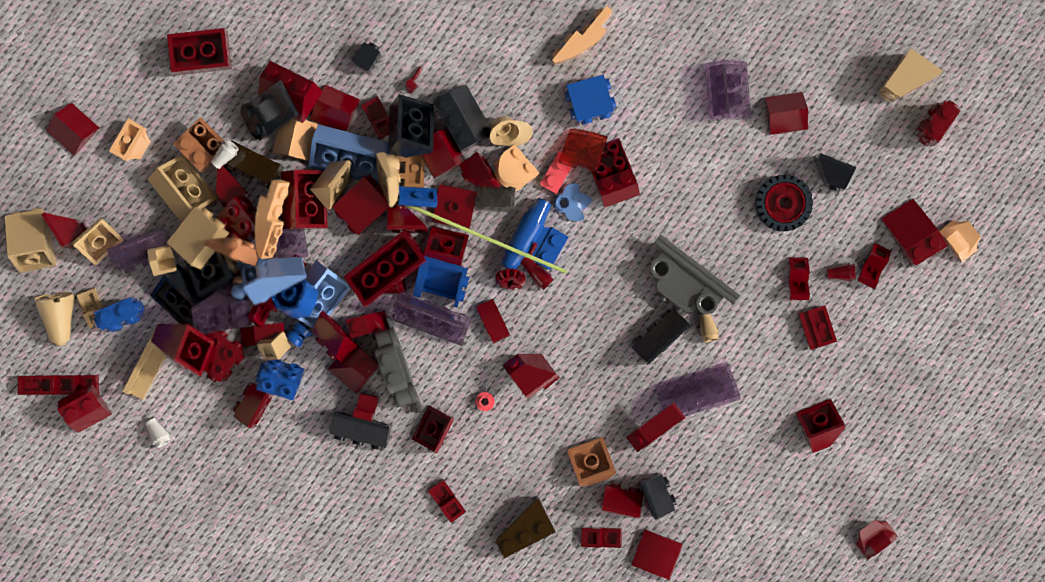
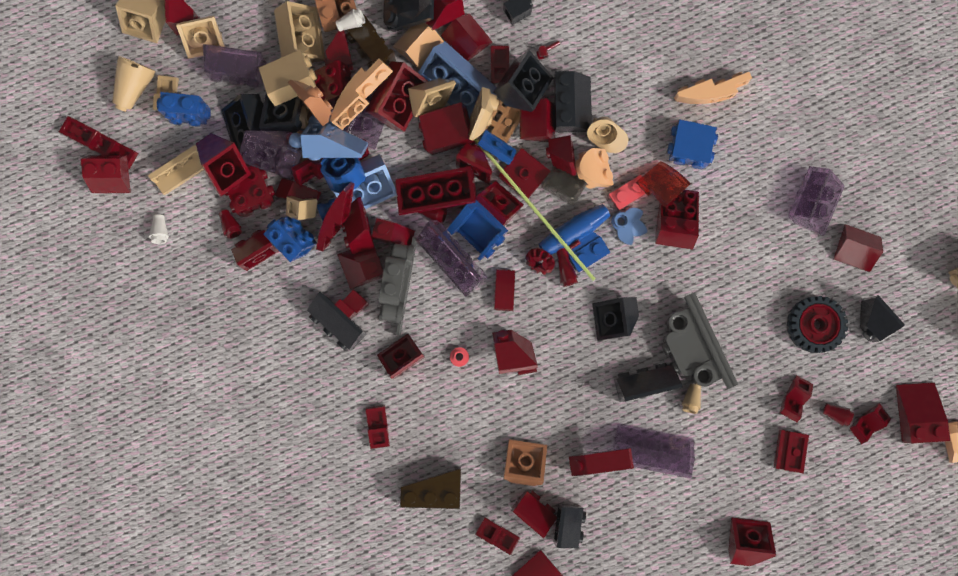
camera: 20 degrees right, 5 degrees down
(161, 260) = (246, 81): tan panel -> none
(217, 394) = (230, 226): none -> dark red cone
(311, 340) = (335, 217): none -> dark red slope
(603, 293) = (615, 317): none -> black slope

